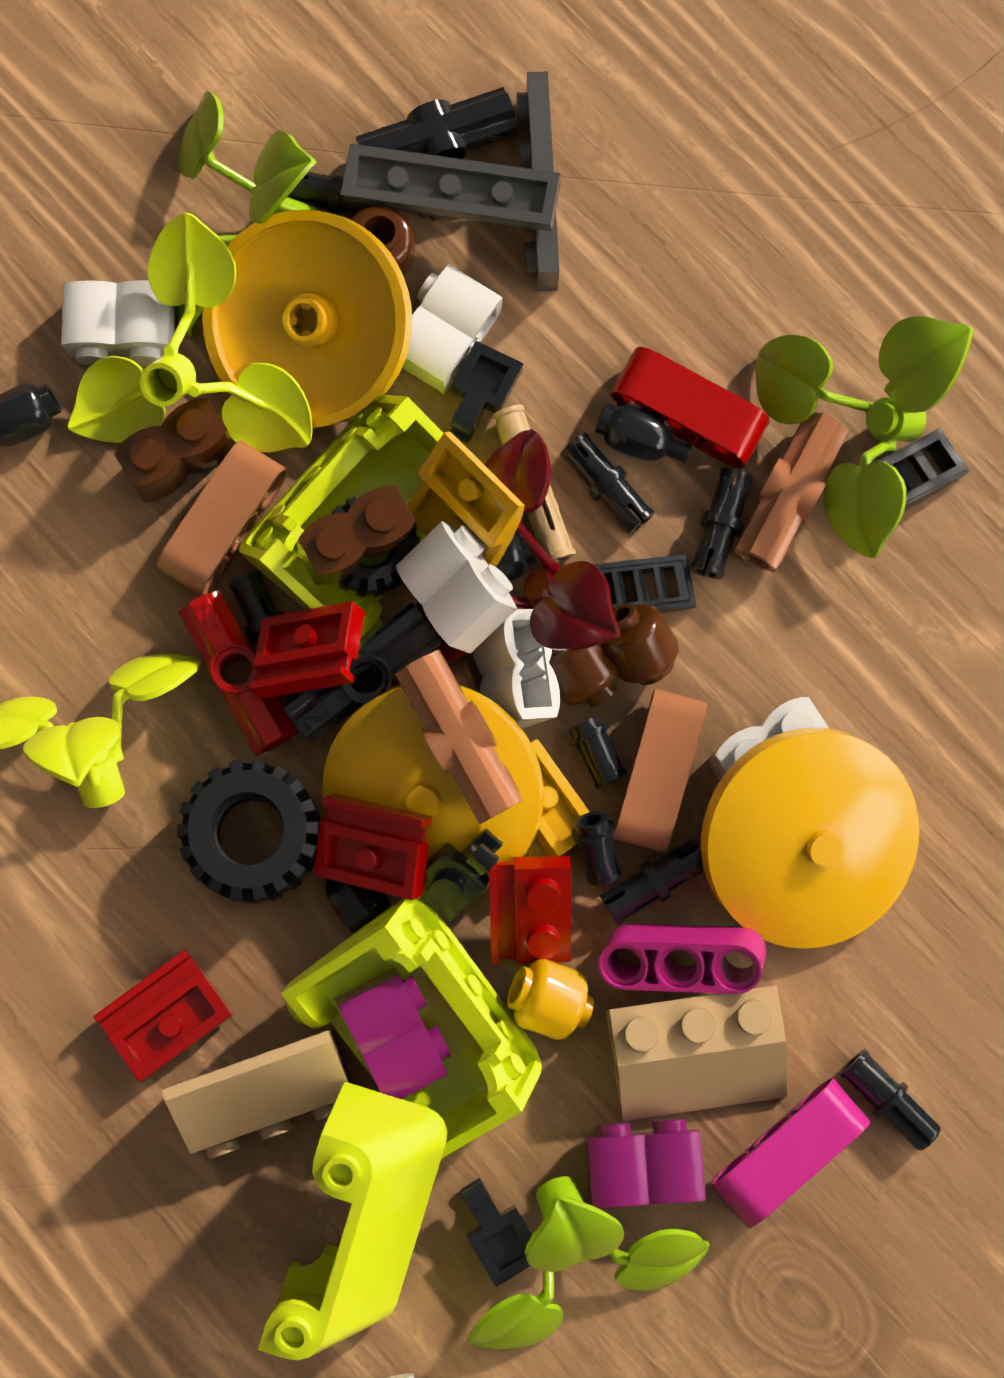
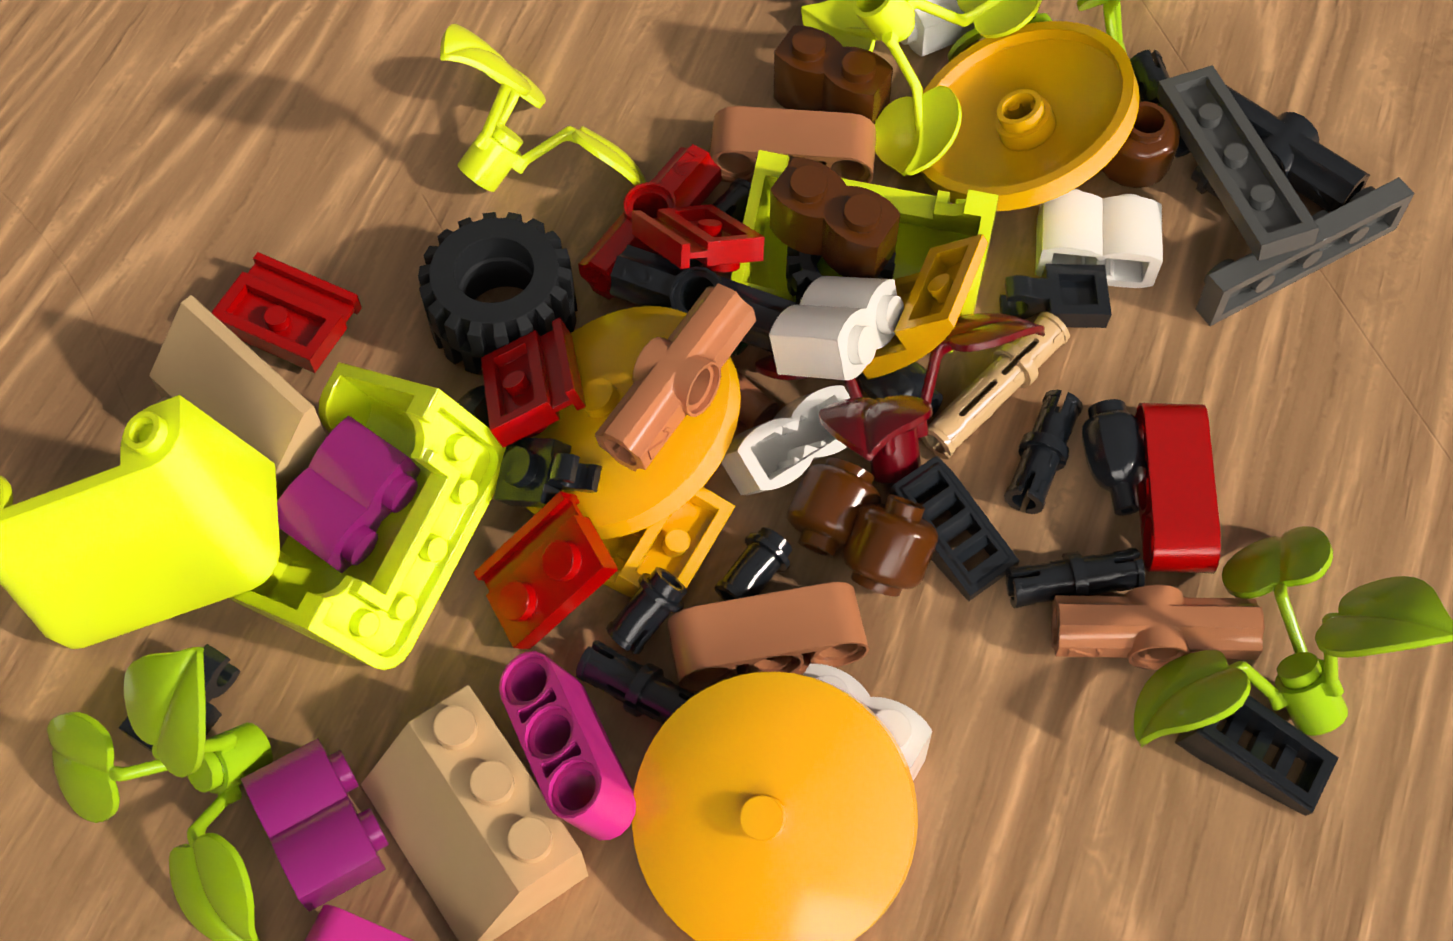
camera: 70 degrees right, 20 degrees down
(550, 999) = (459, 639): yellow head -> none

